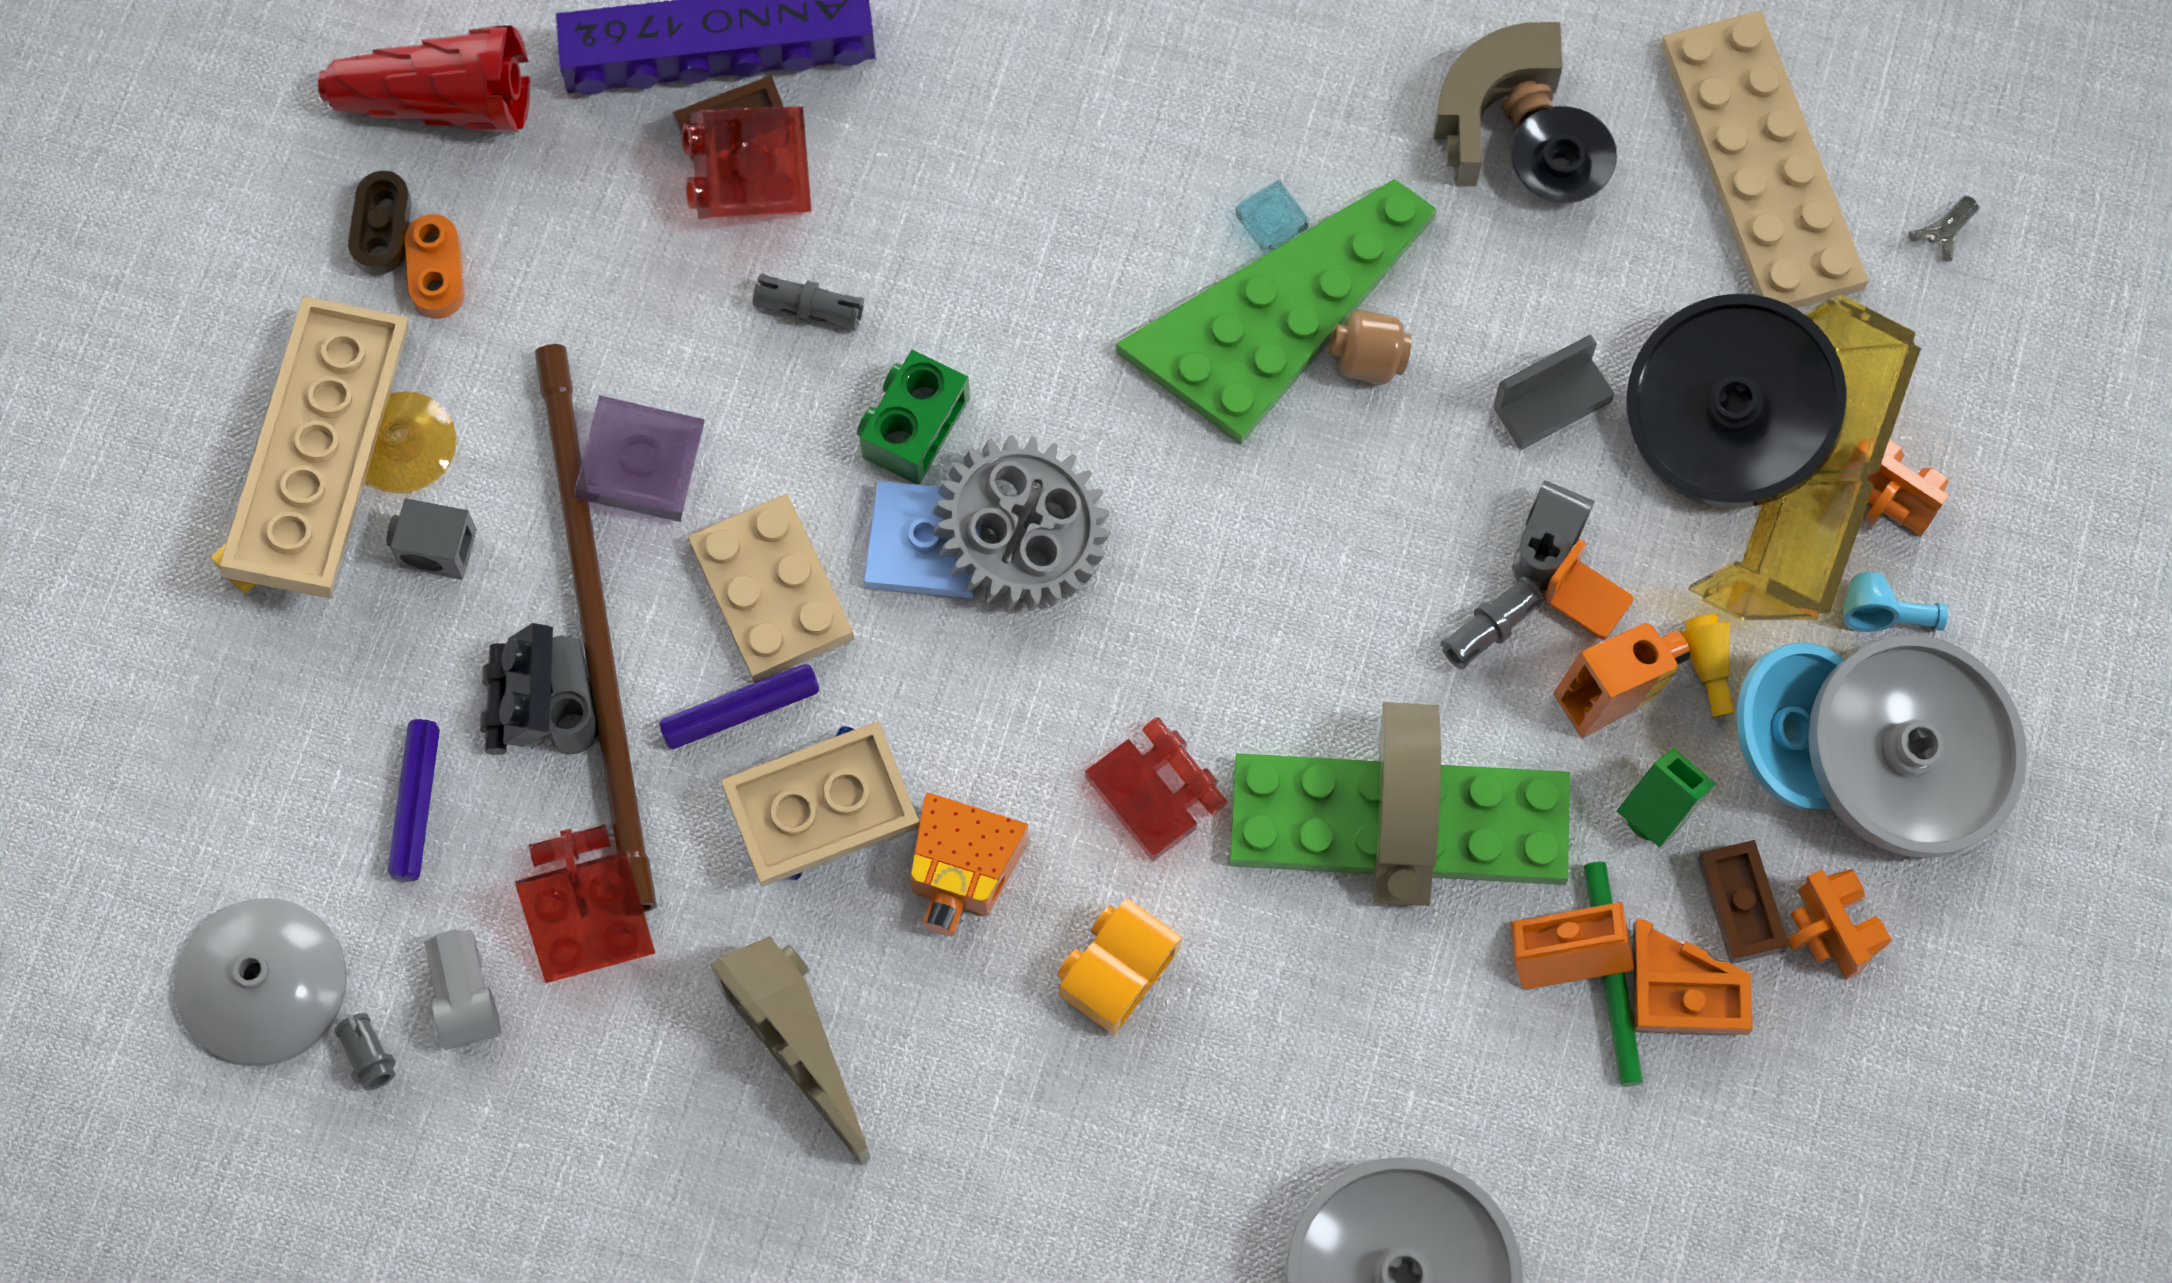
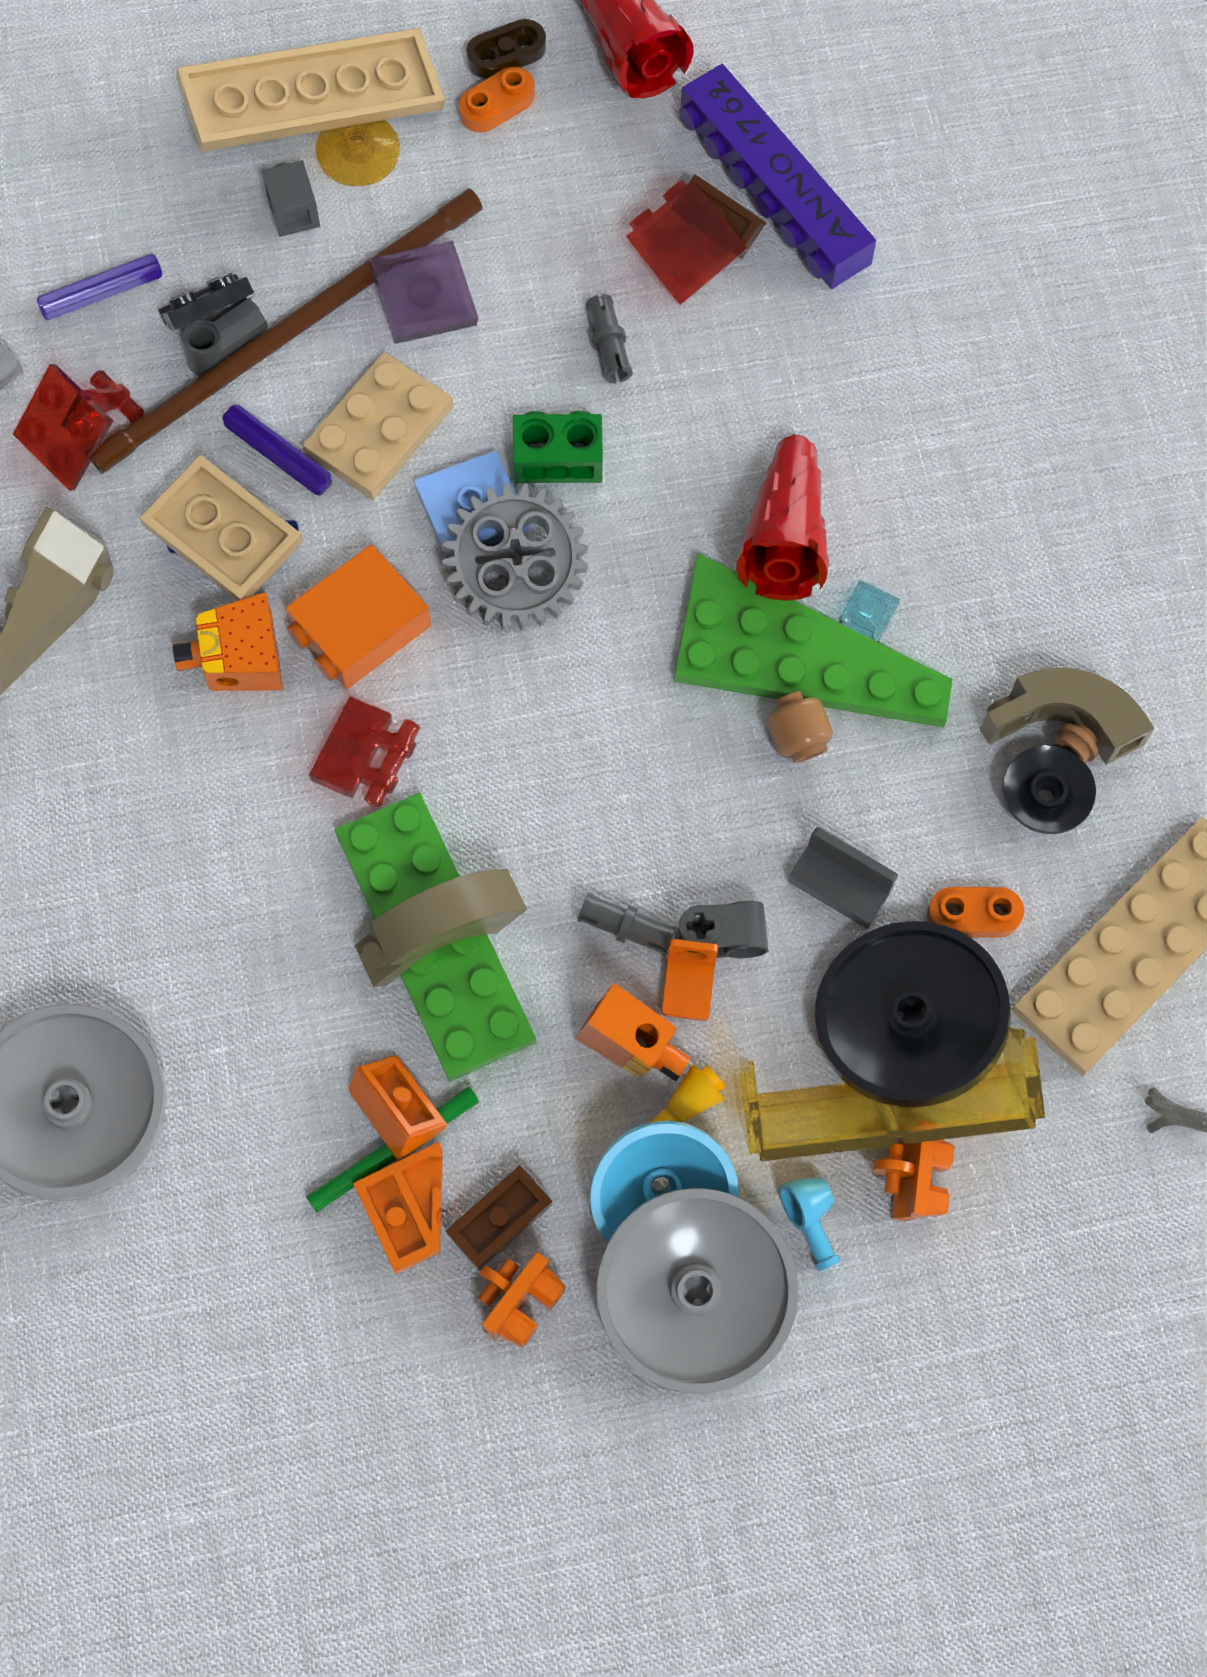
camera: 60 degrees right, 0 degrees up
(999, 717) = (357, 617): none -> orange brick
(1118, 965) = (210, 791): light orange brick -> none
(1150, 237) = (786, 532): none -> red cone
(1650, 288) = (977, 914): none -> orange plate
(1665, 798) = (548, 1115): green brick -> none

